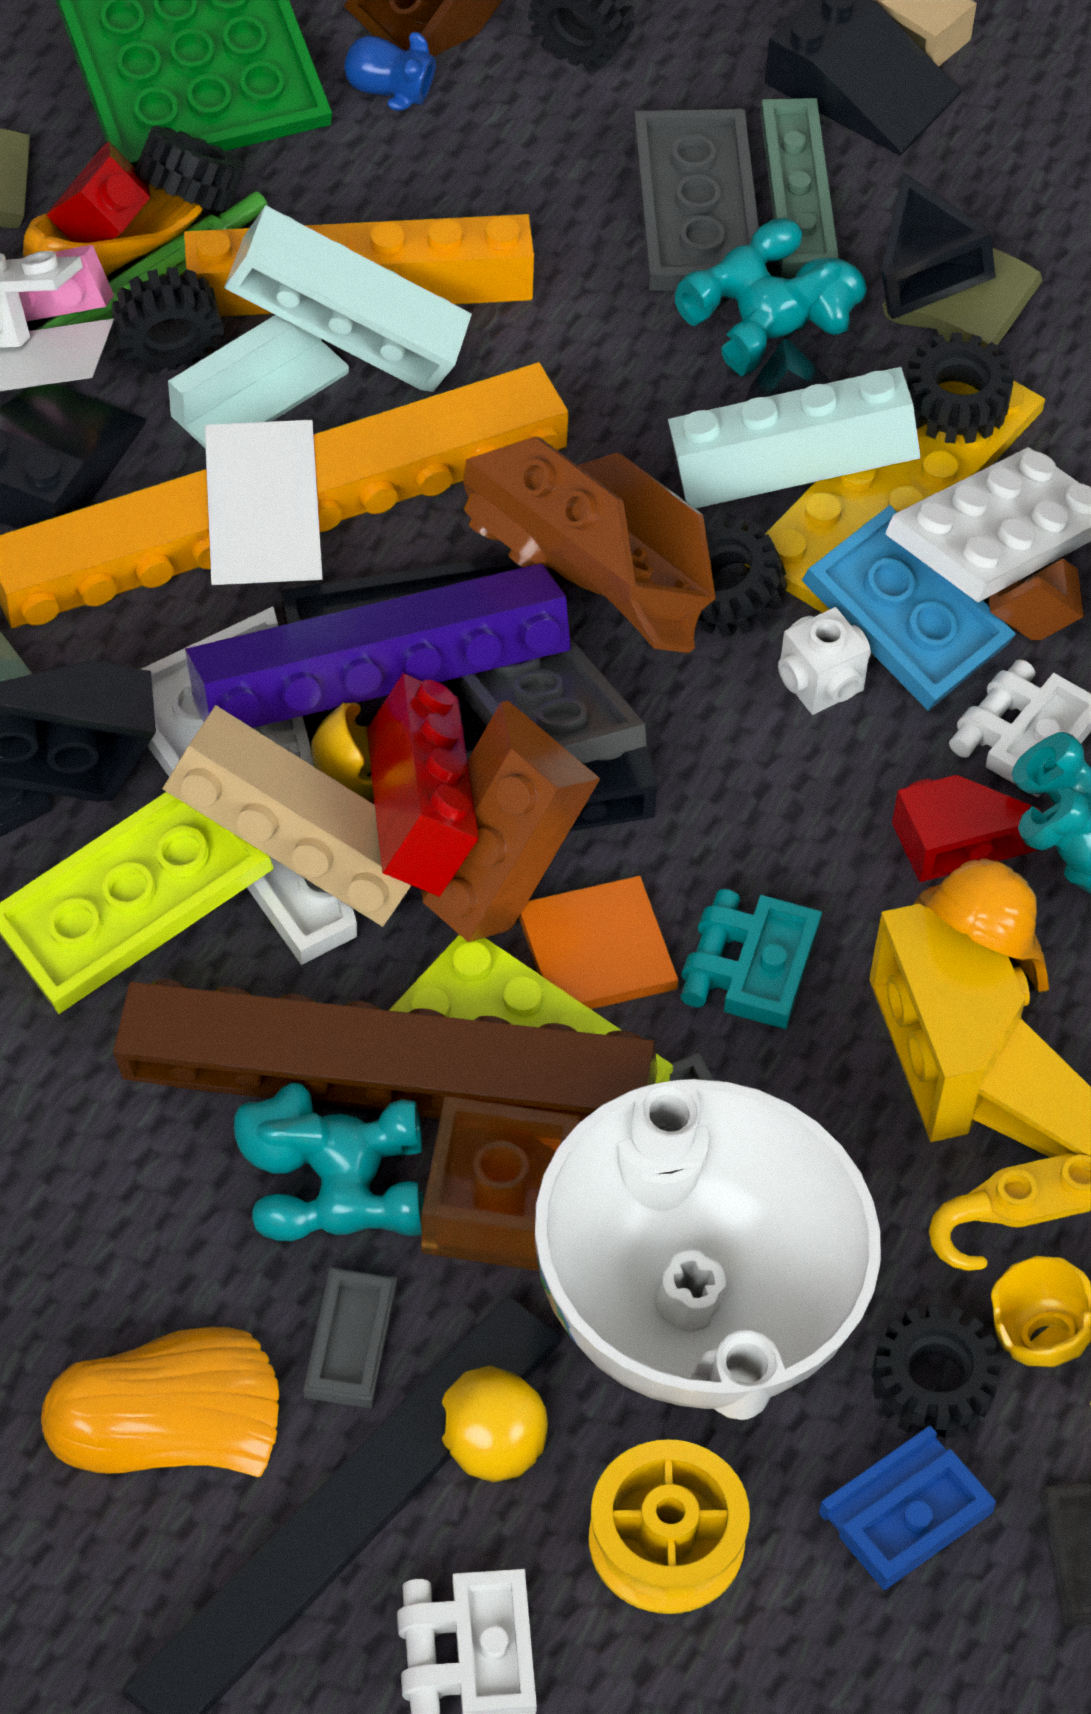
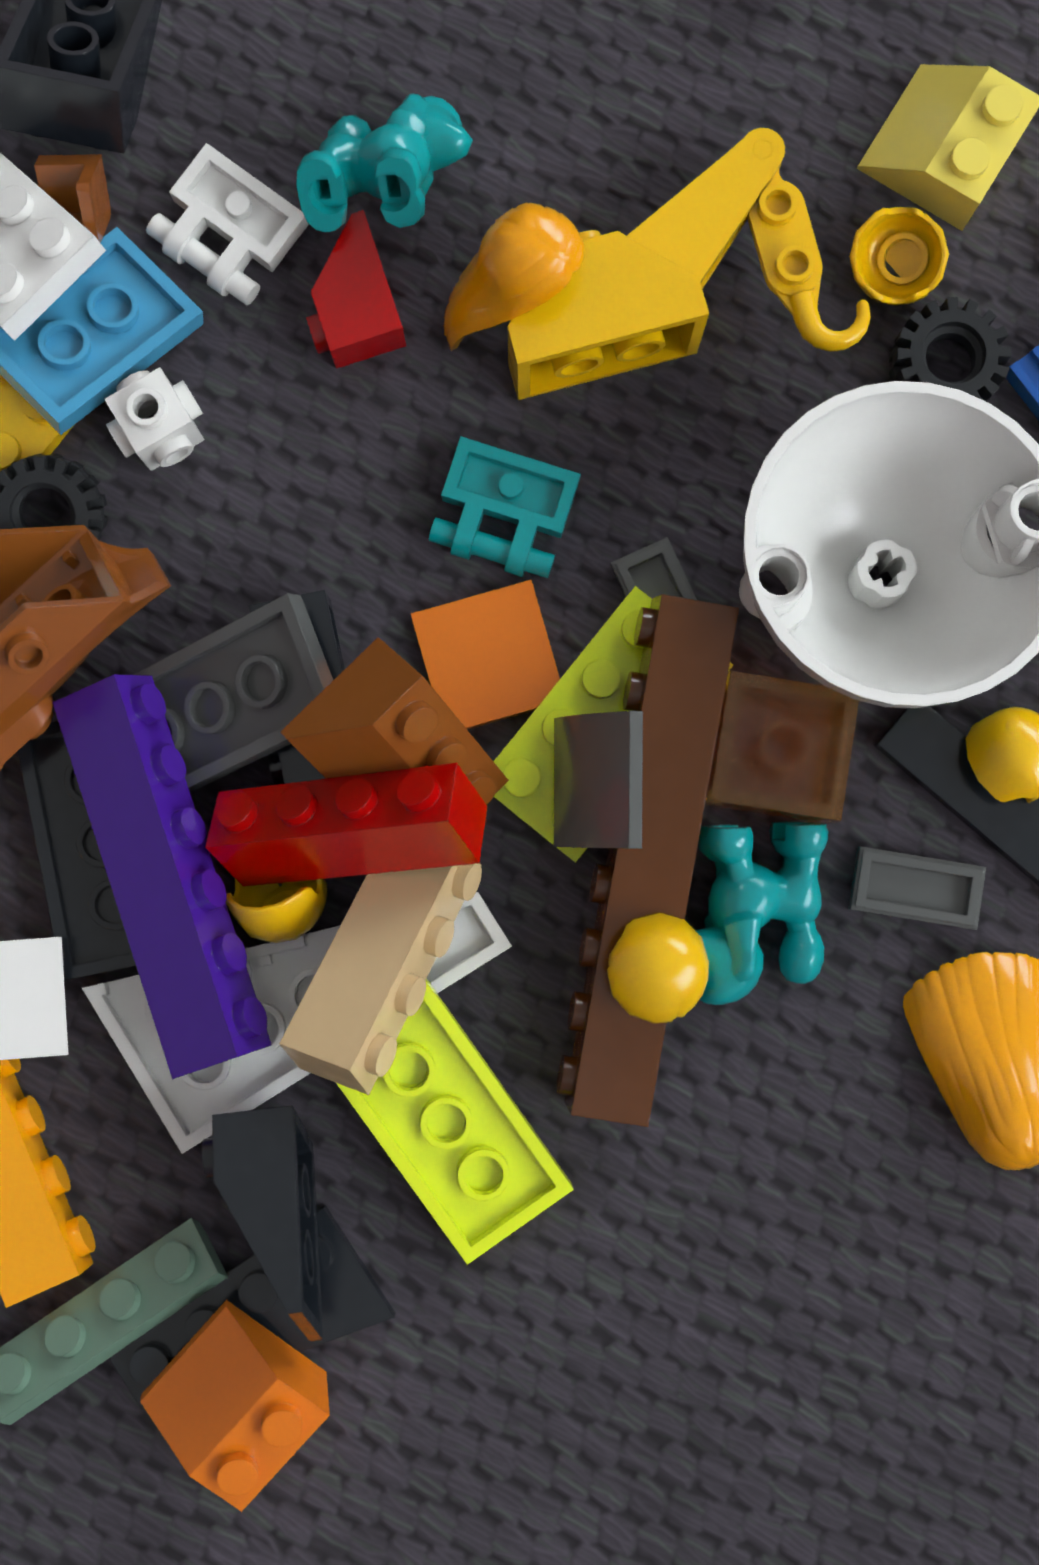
camera: 85 degrees left, 30 degrees up
(274, 1043) = (658, 968): none -> yellow hair
(462, 992) = (598, 780): none -> dark grey slope

